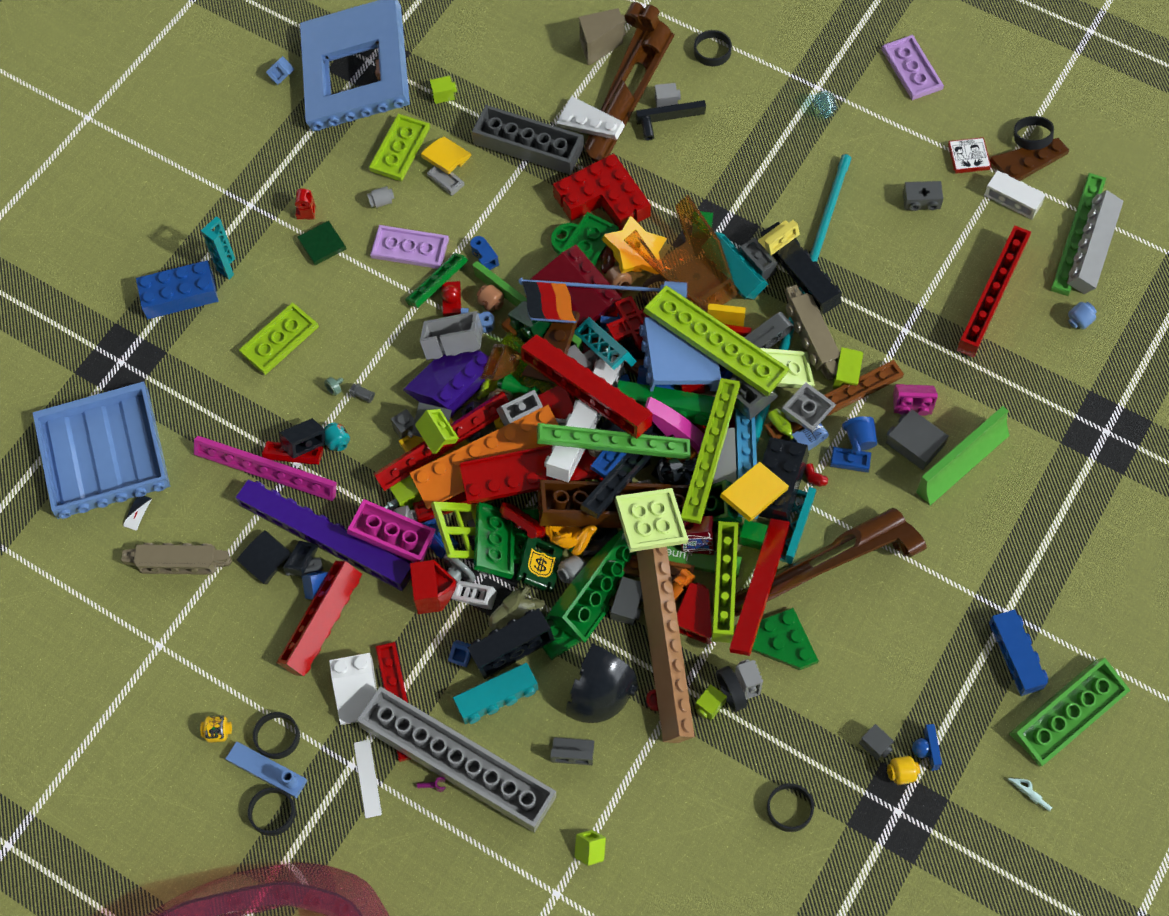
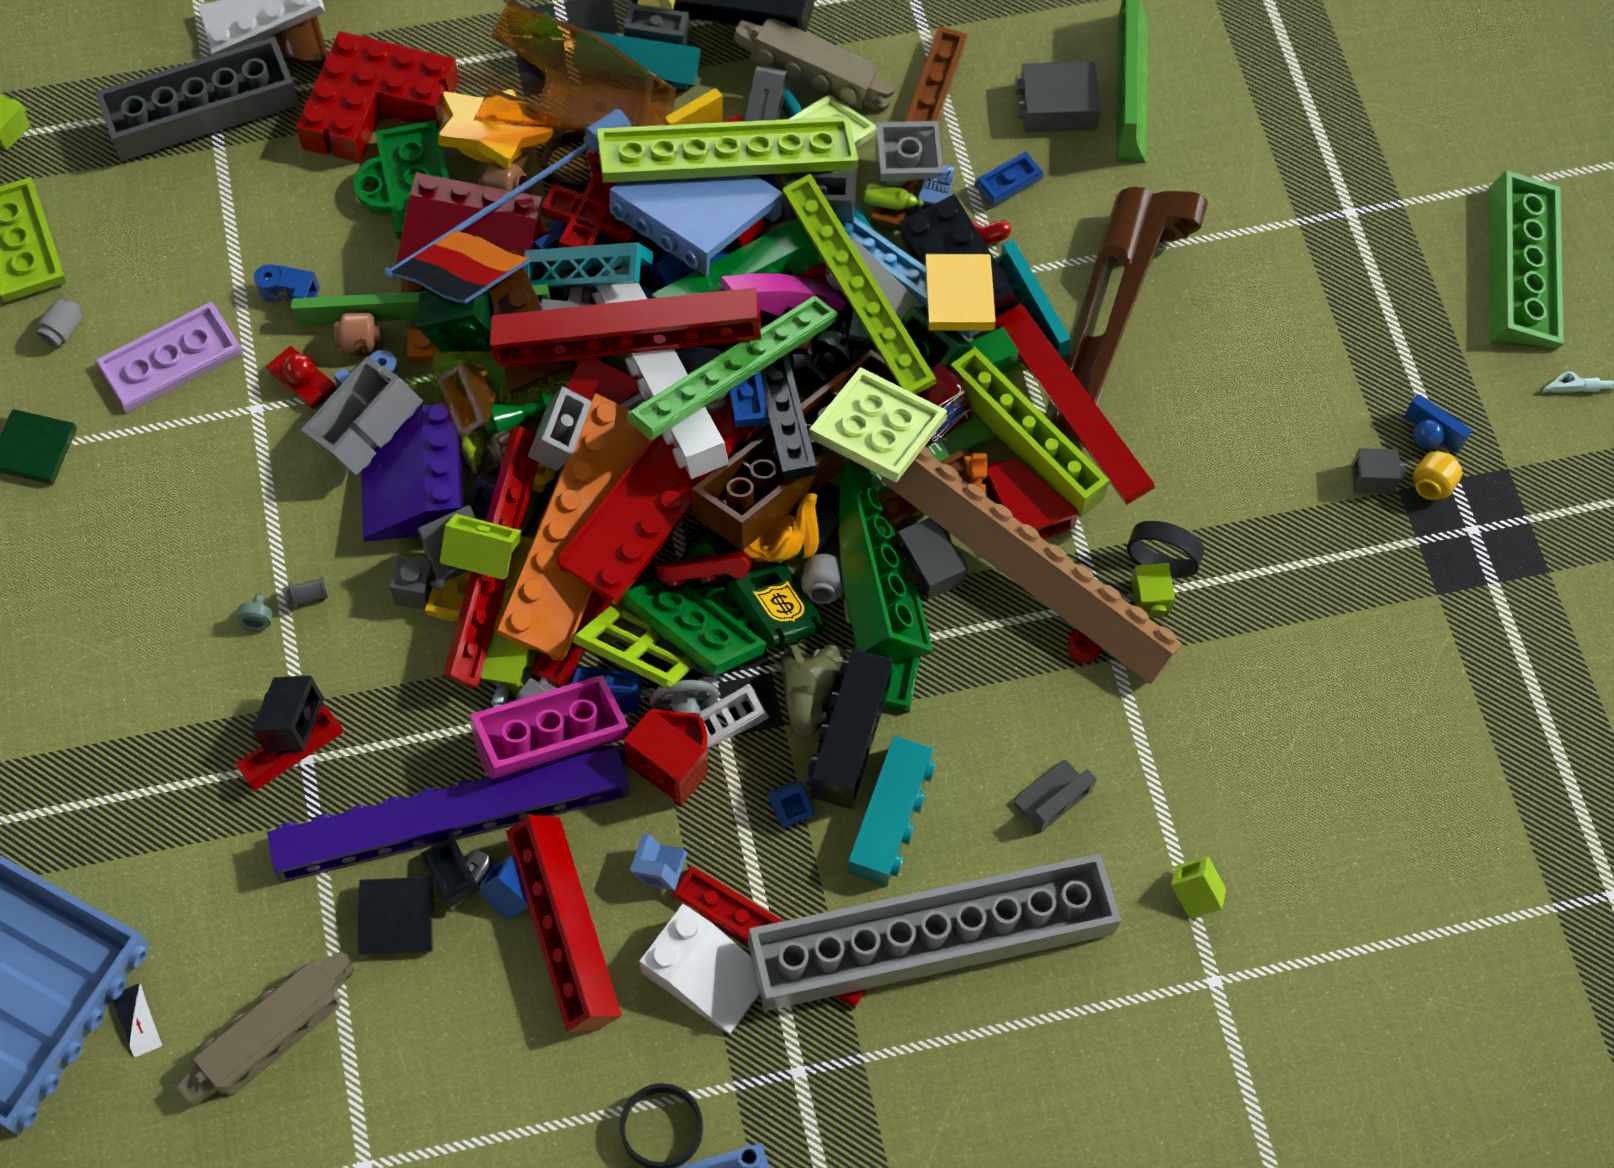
camera: 50 degrees left, 0 degrees up
(265, 468) = (268, 801): dark pink plate -> none
(278, 338) = (105, 618): lime plate -> none
(336, 437) = (332, 675): teal head -> none
(367, 779) = (838, 1067): white sticker -> none
(381, 627) = (657, 864): none -> medium blue panel
(433, 784) = (932, 993): magenta hand -> none
(436, 280) = (256, 369): green tile -> none
(445, 155) = (96, 202): yellow slope -> none
(449, 183) = (127, 233): light grey tile -> none
(603, 687) = (1012, 683): black brick -> none
(607, 260) = (460, 167): clear red piece -> none
(749, 678) = (1176, 510): light grey brick -> none
(785, 640) = (1162, 443): green plate -> none
(796, 787) = (1374, 601): black tyre -> none
(848, 368) = (901, 73): lime panel -> none
(861, 433) = (993, 138): blue hat -> none
(916, 397) = (1002, 55): dark pink slope -> none
(1018, 652) = (1412, 242): blue brick -> none

